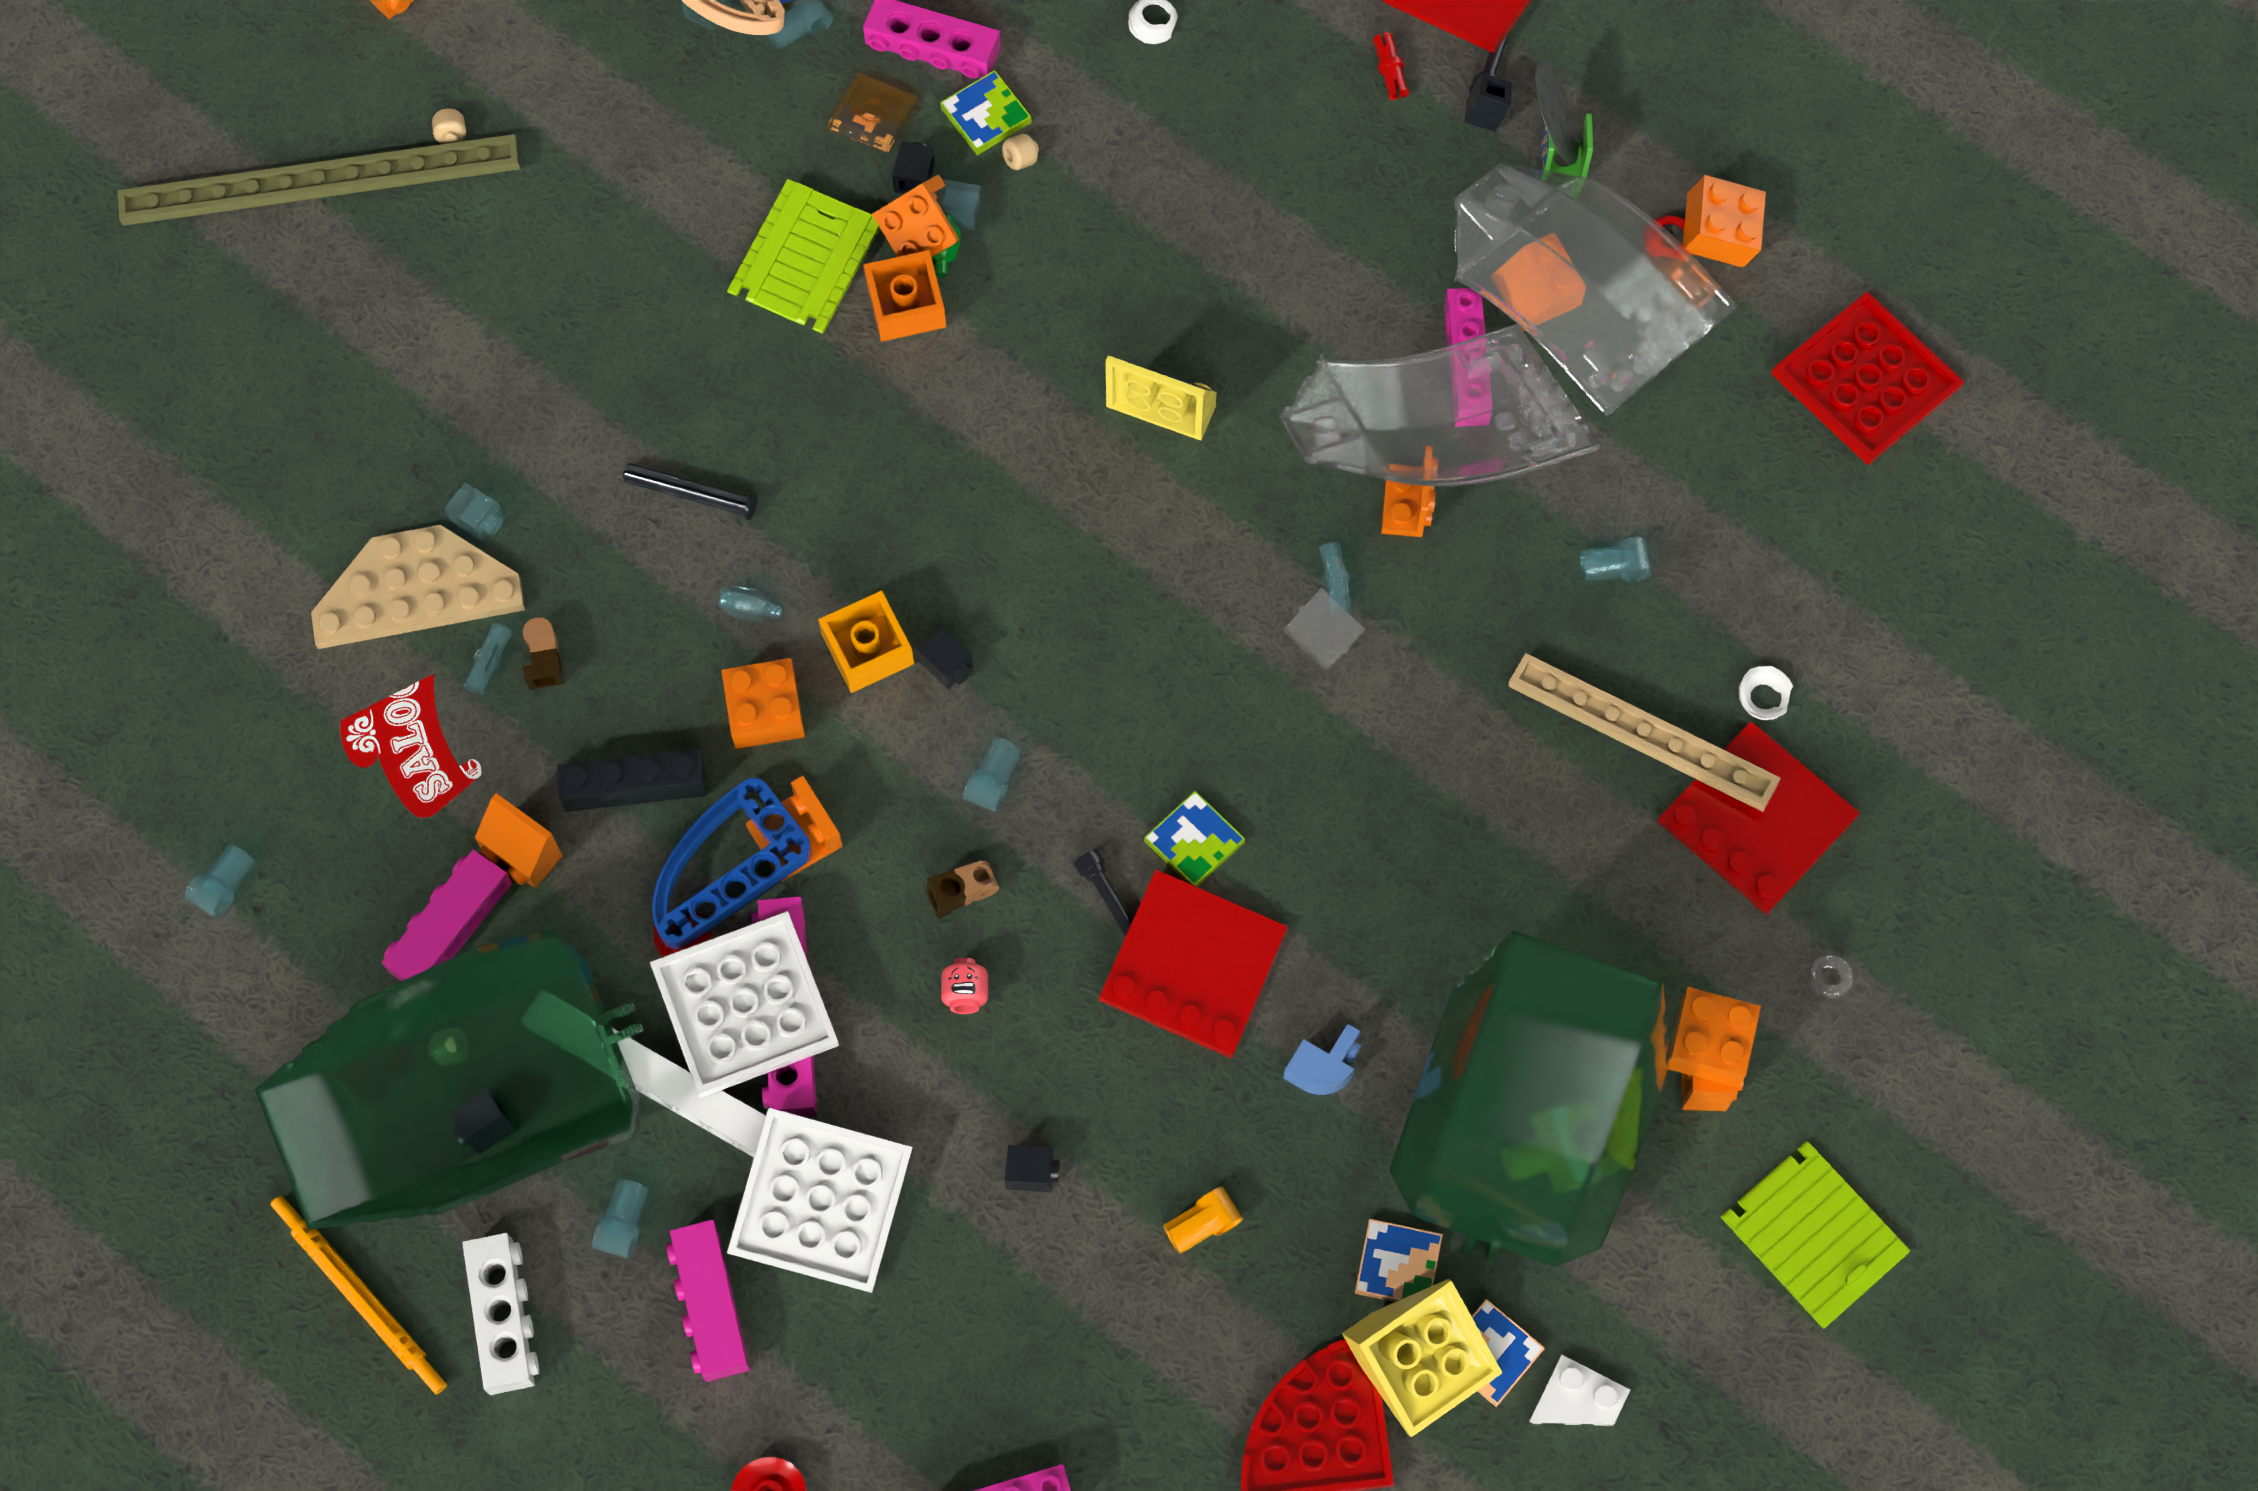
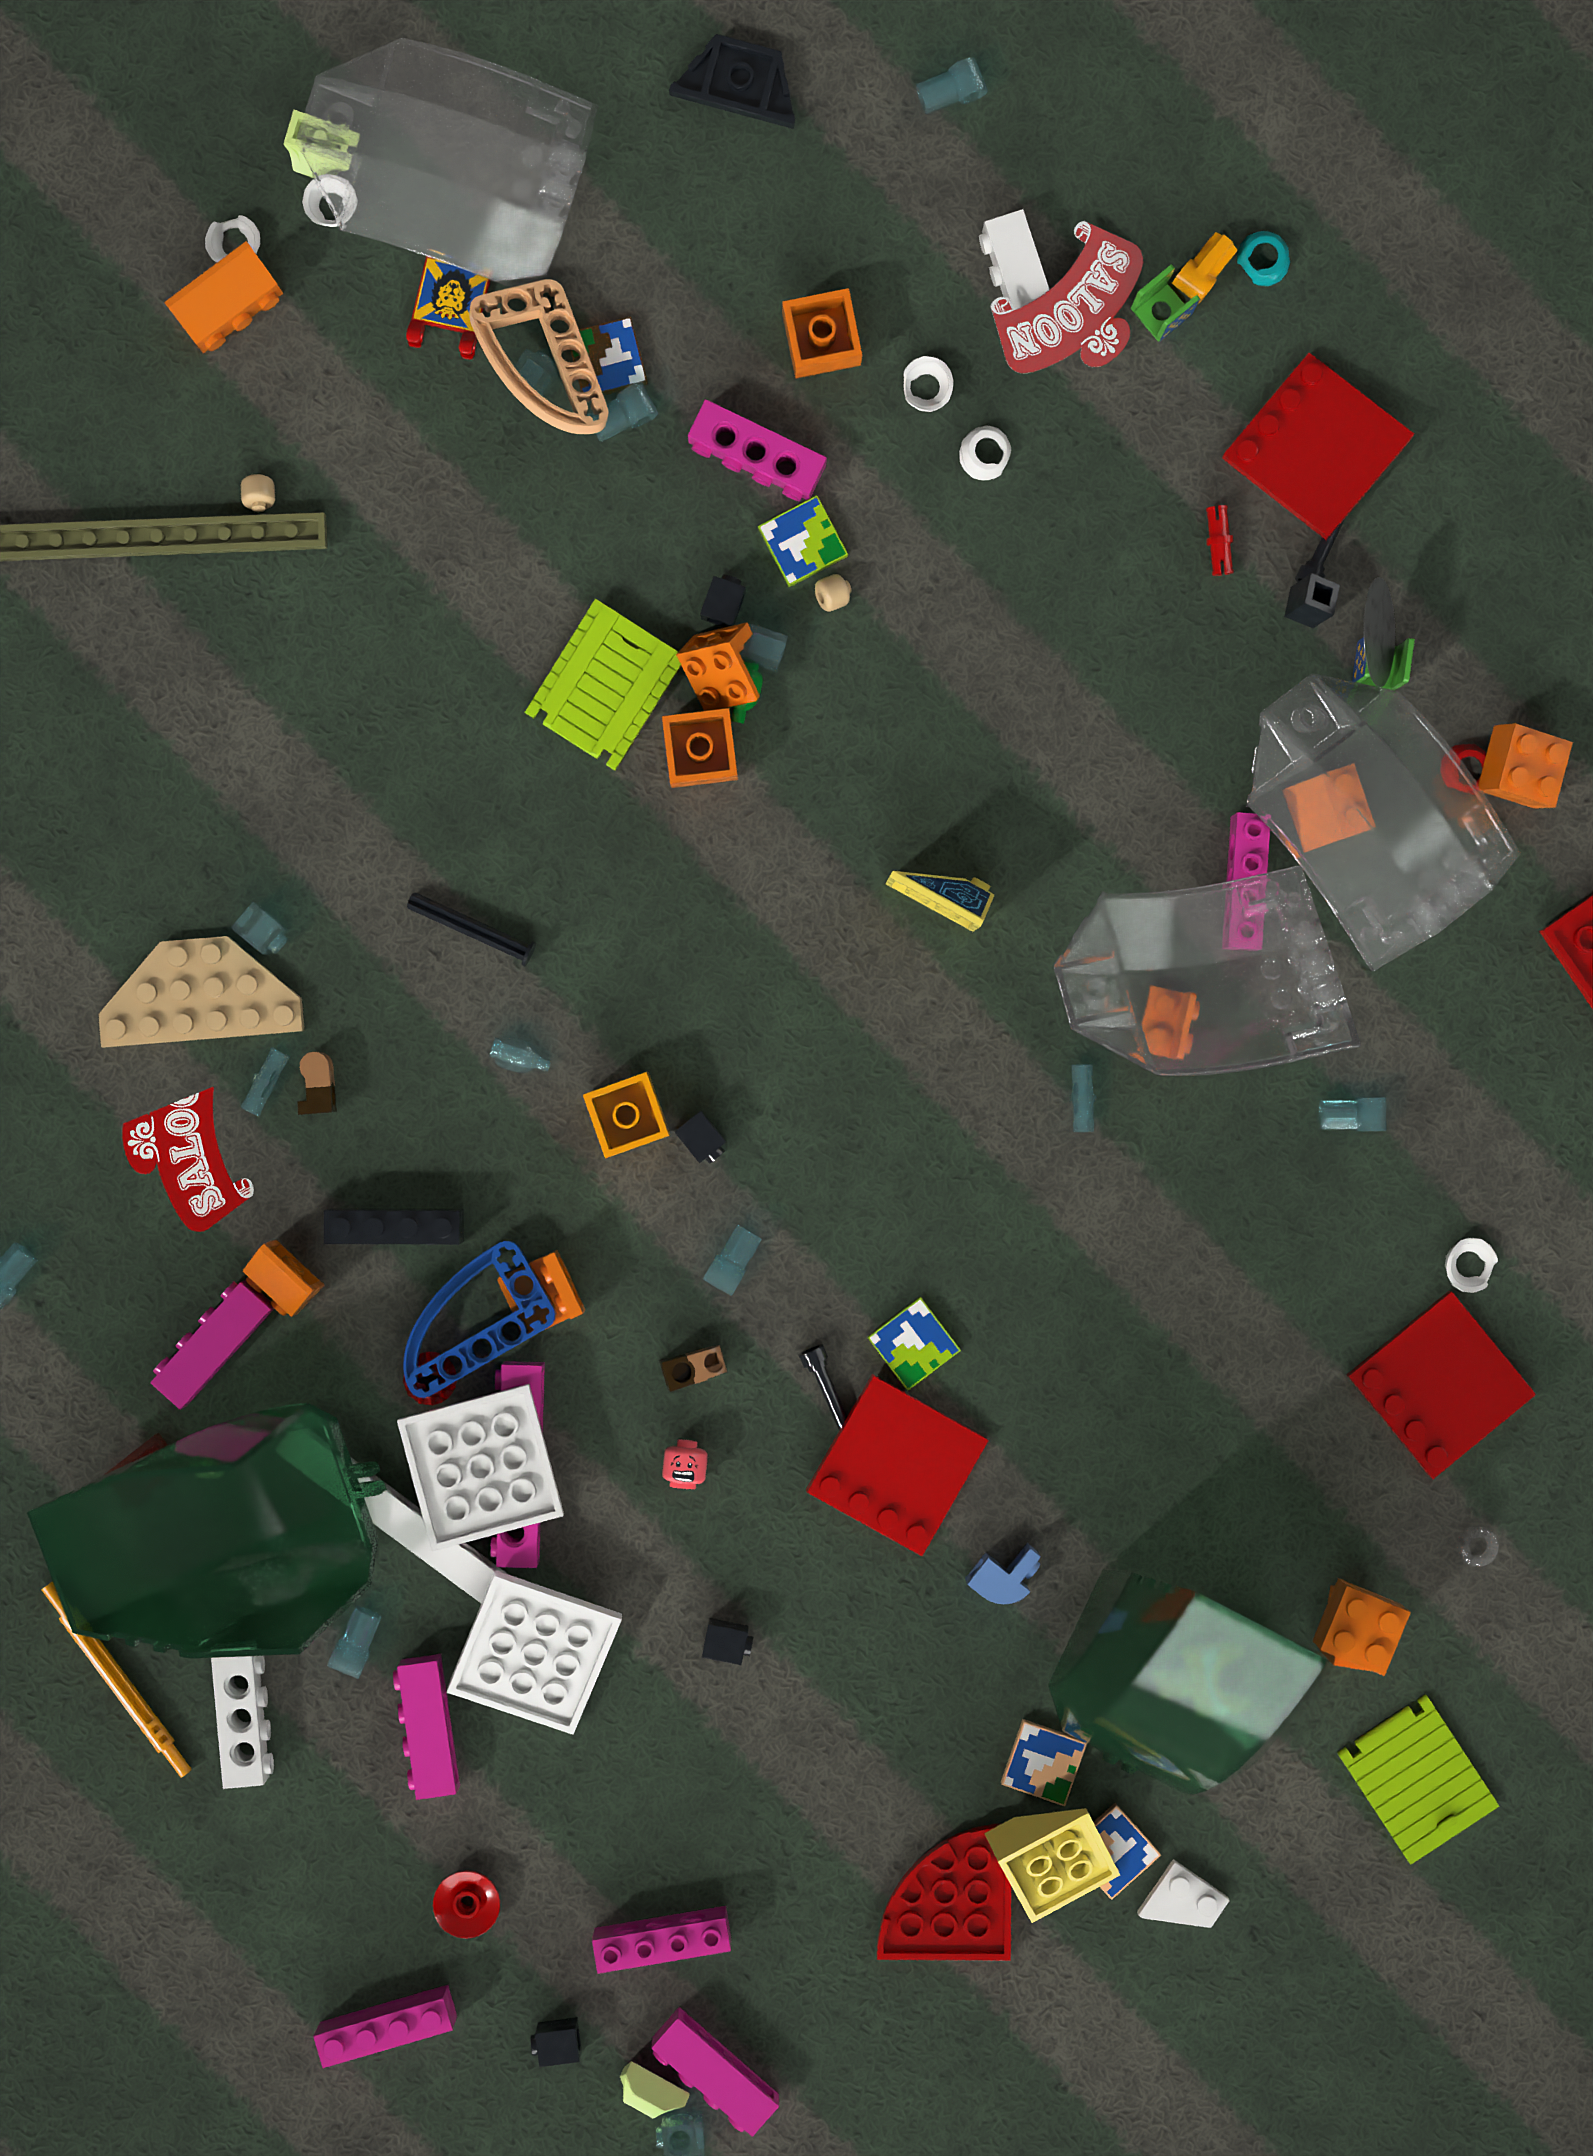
camera: 10 degrees right, 20 degrees up
(481, 1122) = (234, 1547): black brick -> none
(763, 703) = (523, 1163): orange brick -> none
(872, 112) = (688, 527): clear orange tile -> none
(1211, 1215) = (883, 1702): light orange piece -> none
(1324, 629) = (1064, 1150): clear piece -> none
(1644, 732) = (1349, 1294): tan plate -> none

